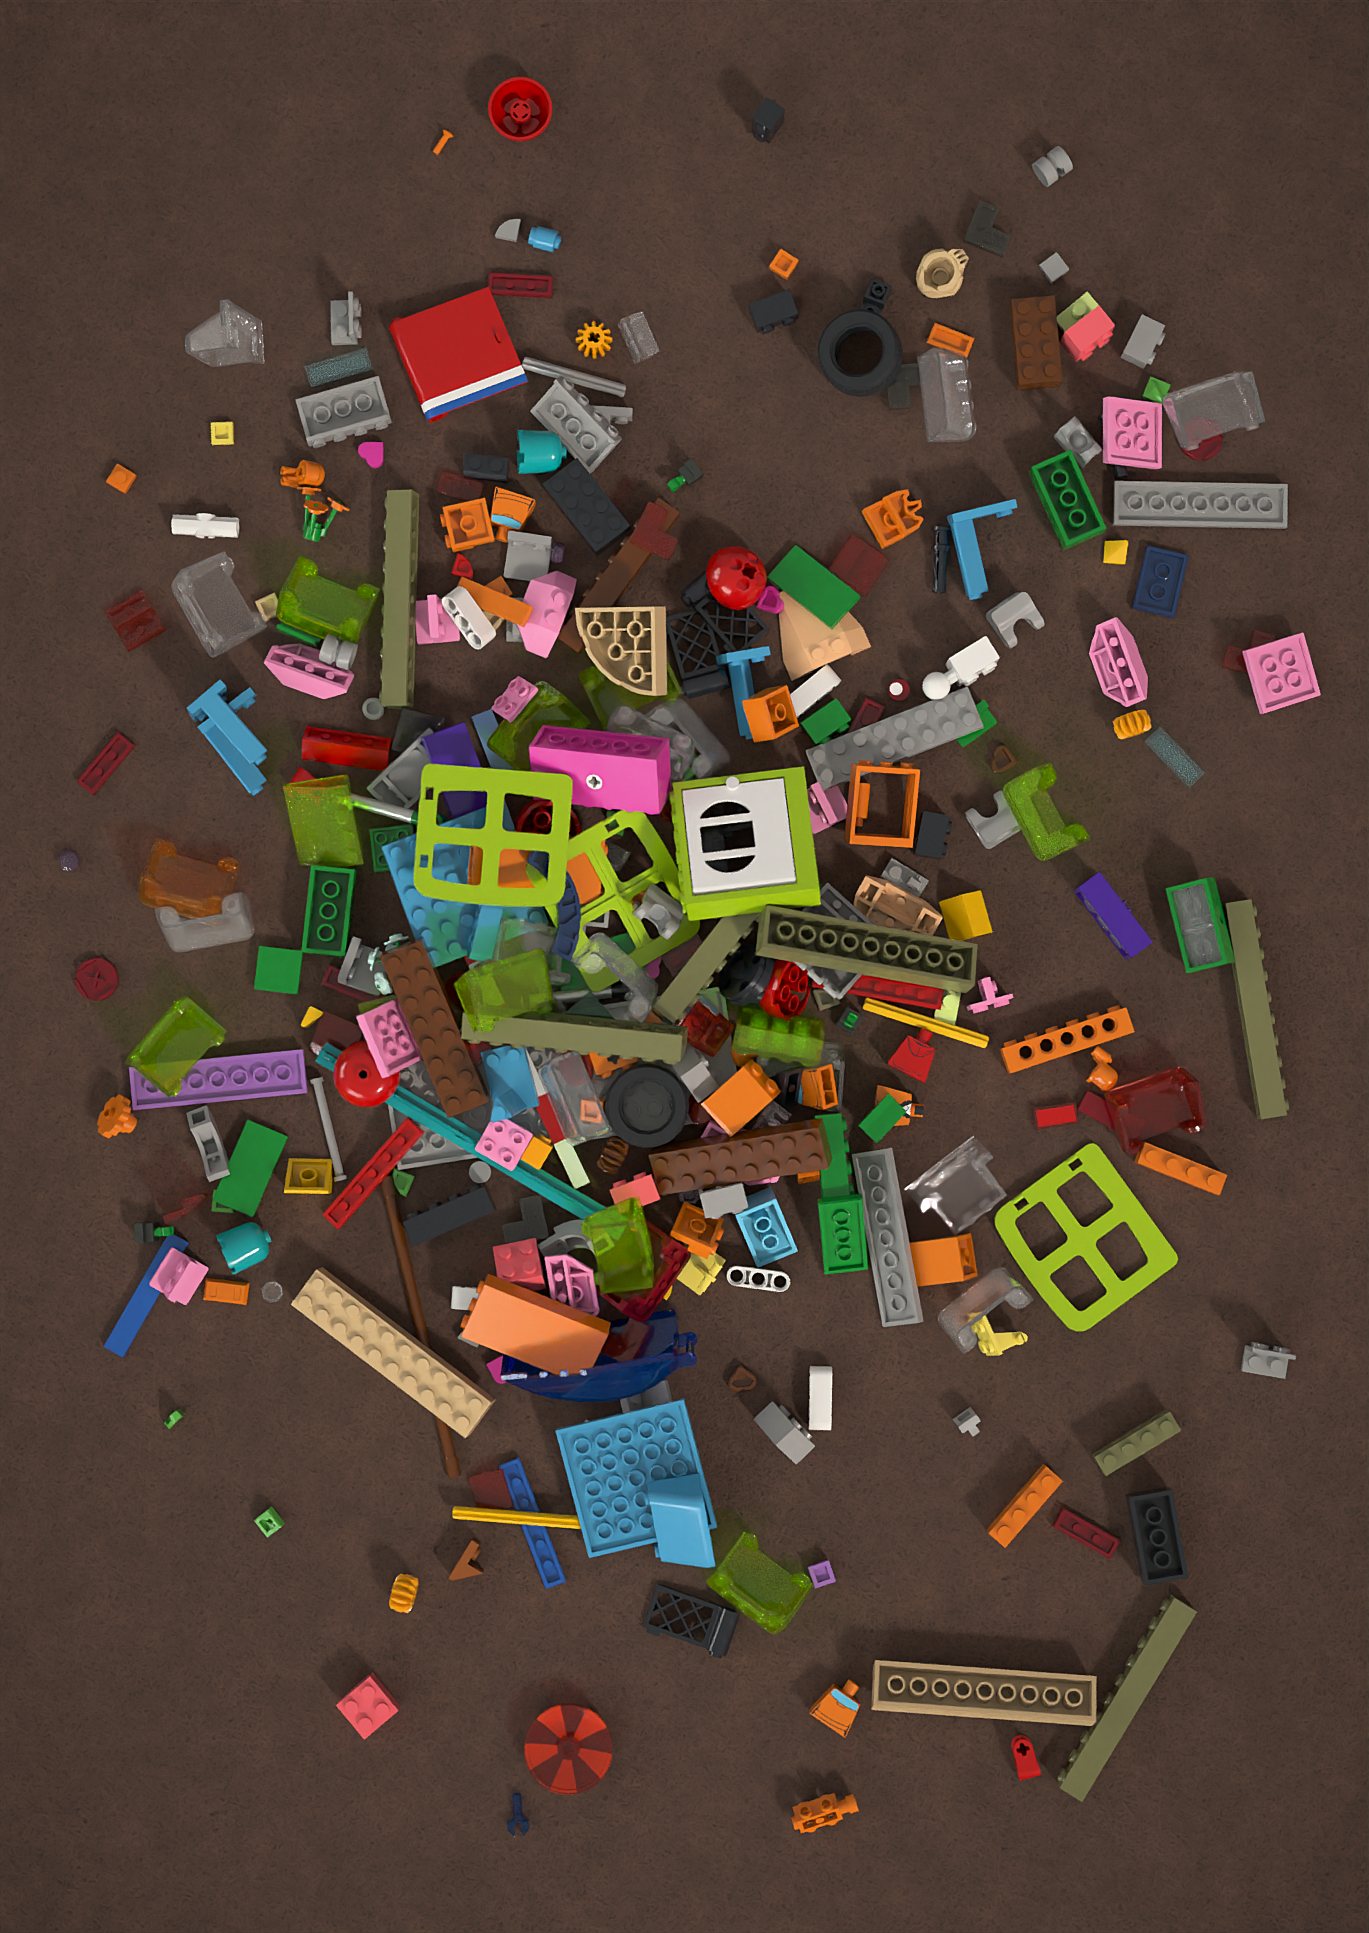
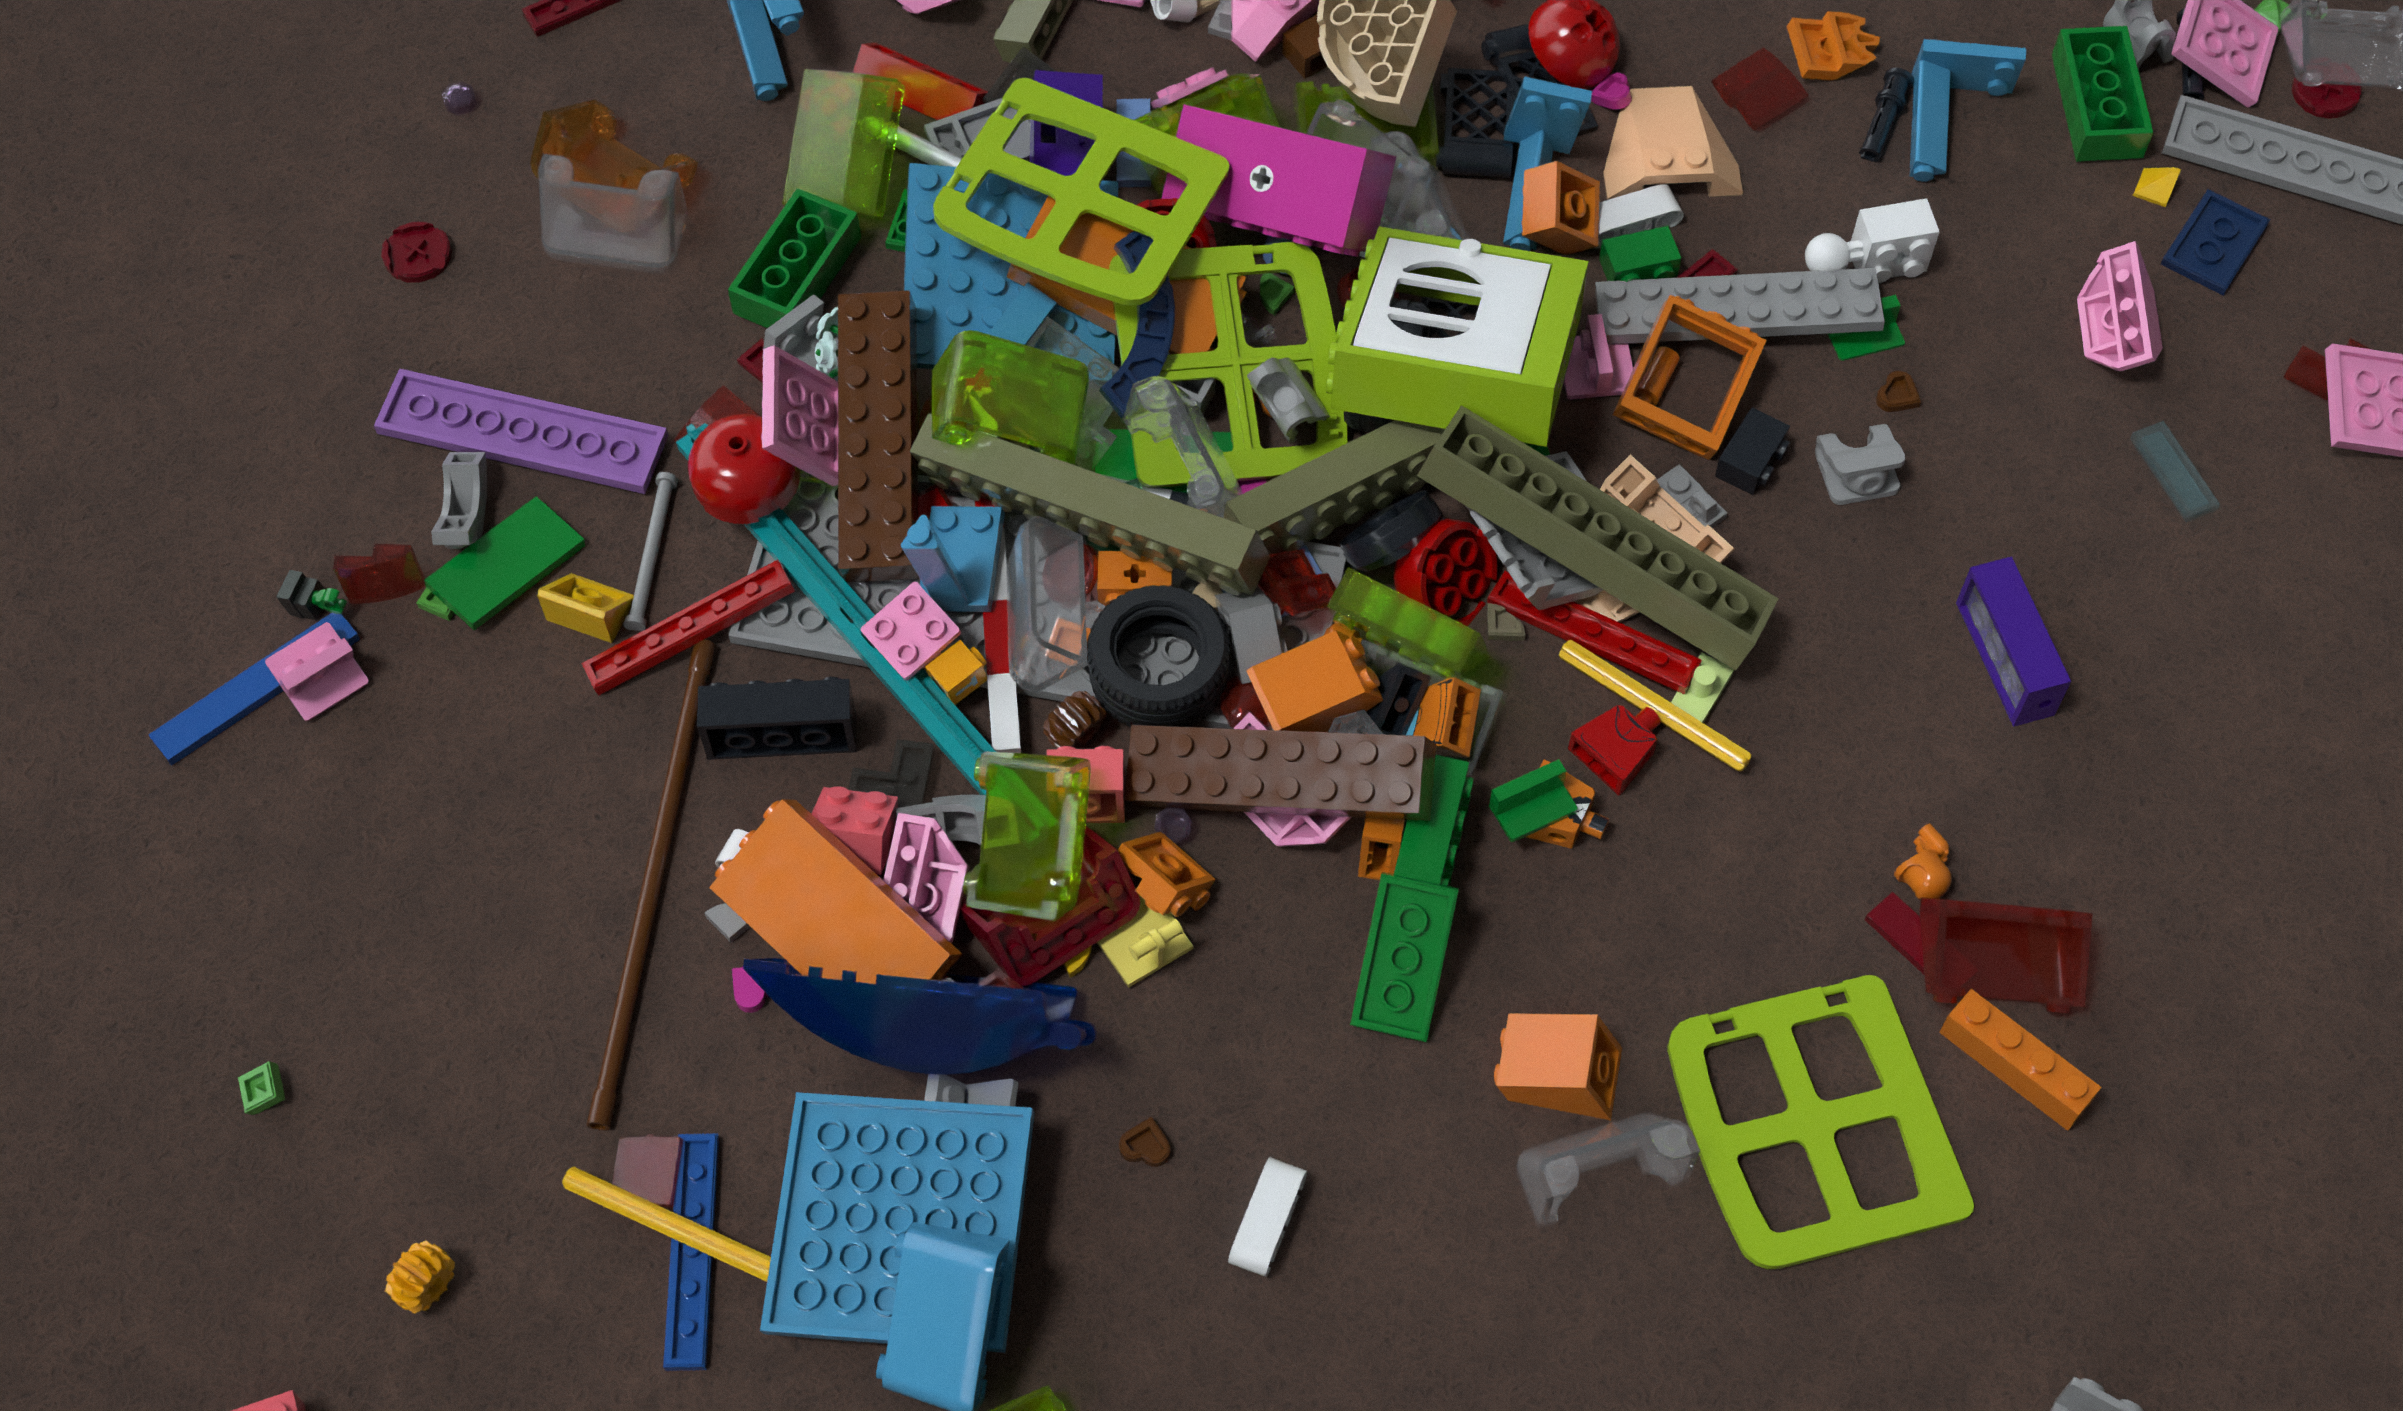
camera: 20 degrees right, 25 degrees down
(116, 1117) = (345, 426): orange plant -> none
(174, 1418) = (199, 876): bright green tile -> none
(175, 1046) = (481, 354): clear neon green windscreen -> none
(226, 1291) = (378, 725): orange tile -> none
(244, 1246) = (438, 657): teal cylinder -> none
(272, 1291) = (448, 746): clear tile -> none
(278, 970) = (683, 319): green tile -> none
(311, 1016) = (698, 389): yellow slope -> none
(372, 709) = (980, 52): light grey tile -> none
(393, 1352) = (593, 891): tan brick -> none
(402, 1181) = (729, 660): bright green tile -> none
(464, 1567) = (540, 1274): dark orange slope -> none
(480, 1172) = (861, 685): light grey tile -> none
(723, 1200) = (1225, 829): light grey brick -> none
(765, 1228) = (1277, 917): medium azure slope -> none
(767, 1284) = (1227, 973): white beam -> none
(785, 1432) = (1186, 1246): light grey brick -> none
(813, 587) = (1684, 88): green tile -> none
(849, 1020) = (1532, 661): pearl dark grey piece -> none
(887, 1238) = (1477, 998): light grey plate -> none
(898, 690) = (1766, 257): dark red tile -> none
(959, 1186) = (1630, 962): clear windscreen -> none
(965, 916) = (1778, 570): yellow slope -> none
(967, 1421) = (1513, 1349): light grey tile -> none
(988, 990) = (1771, 693): bright pink bracket -> none
(995, 1343) = (1600, 1221): light yellow plate -> none
(1008, 612) = (1976, 201): light grey piece -> none
(1039, 816) = (1928, 430): clear neon green windscreen -> none
(1055, 1115) = (1826, 914): red tile -> none
(1121, 1027) = (1786, 811): orange brick -> none
(1132, 724) = (2120, 397): light orange gear -> none
(1200, 925) = (2156, 699): brick -> none
(1255, 1011) = (2215, 865): olive brick -> none

